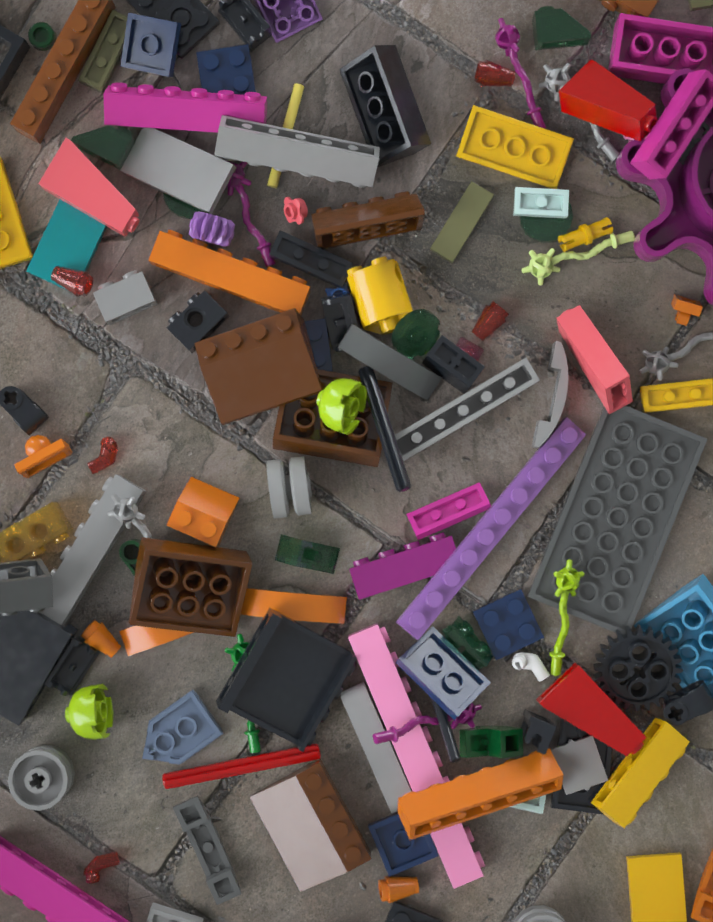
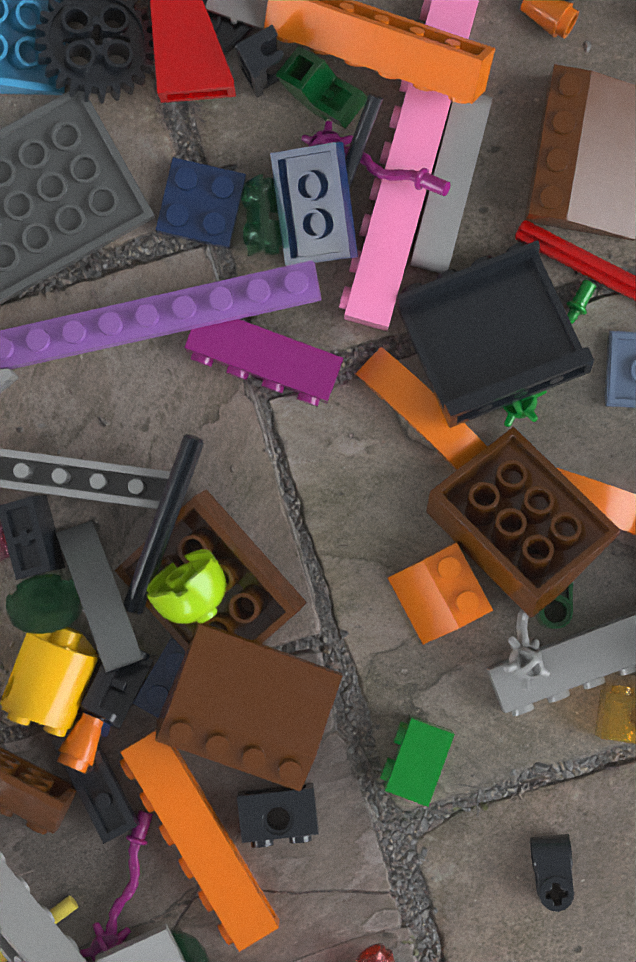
camera: 140 degrees left, 0 degrees up
(41, 455) = (571, 801): orange tile -> none
(107, 455) = (498, 742): clear red arm -> none
(125, 297) = (338, 906): light grey brick -> none
(144, 411) = (417, 760): none -> green brick
(211, 229) = (179, 906): medium lavender gear -> none
(289, 487) = (319, 542): light grey wheel -> none
(295, 210) = (68, 853): coral plate -> none
(307, 554) = (361, 454): clear green slope -> none
(334, 273) = (81, 744): none -> orange cone
(395, 847) = (515, 59): dark blue plate -> none
(448, 511) = (166, 378): dark pink plate -> none
(530, 662) = (209, 142): white arm -> none
(567, 582) = (97, 195): lime piece -> none

